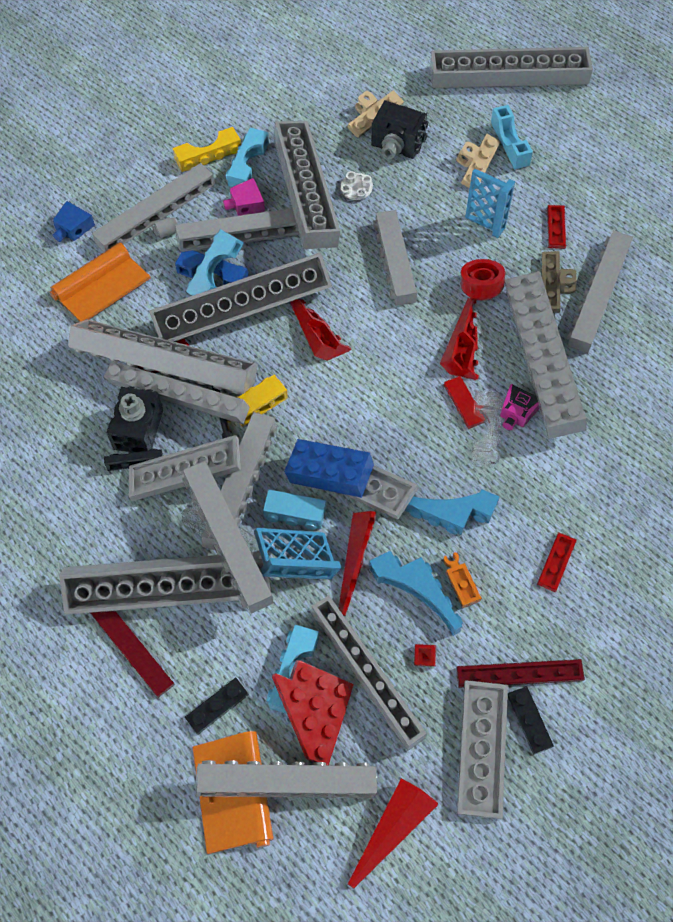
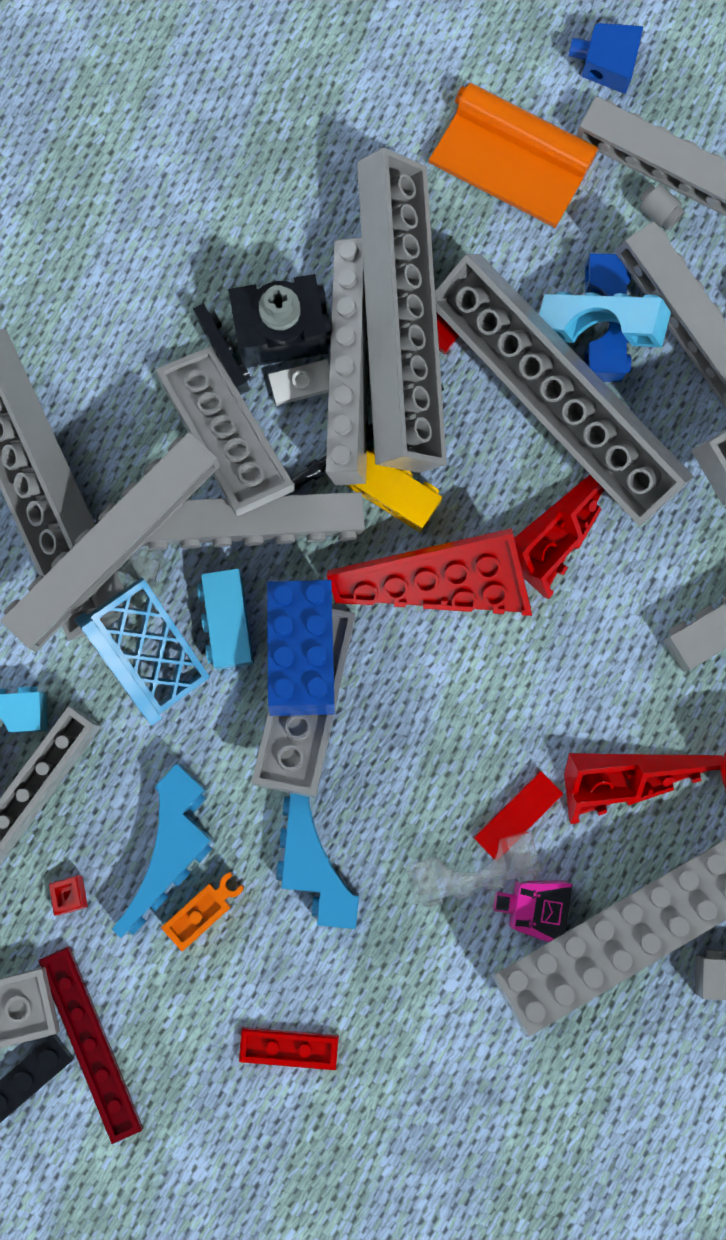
camera: 70 degrees right, 20 degrees up
(173, 427) = (300, 382): none -> white plate
(319, 388) = (467, 572): none -> red wing
(360, 532) = (210, 734): red wedge -> none

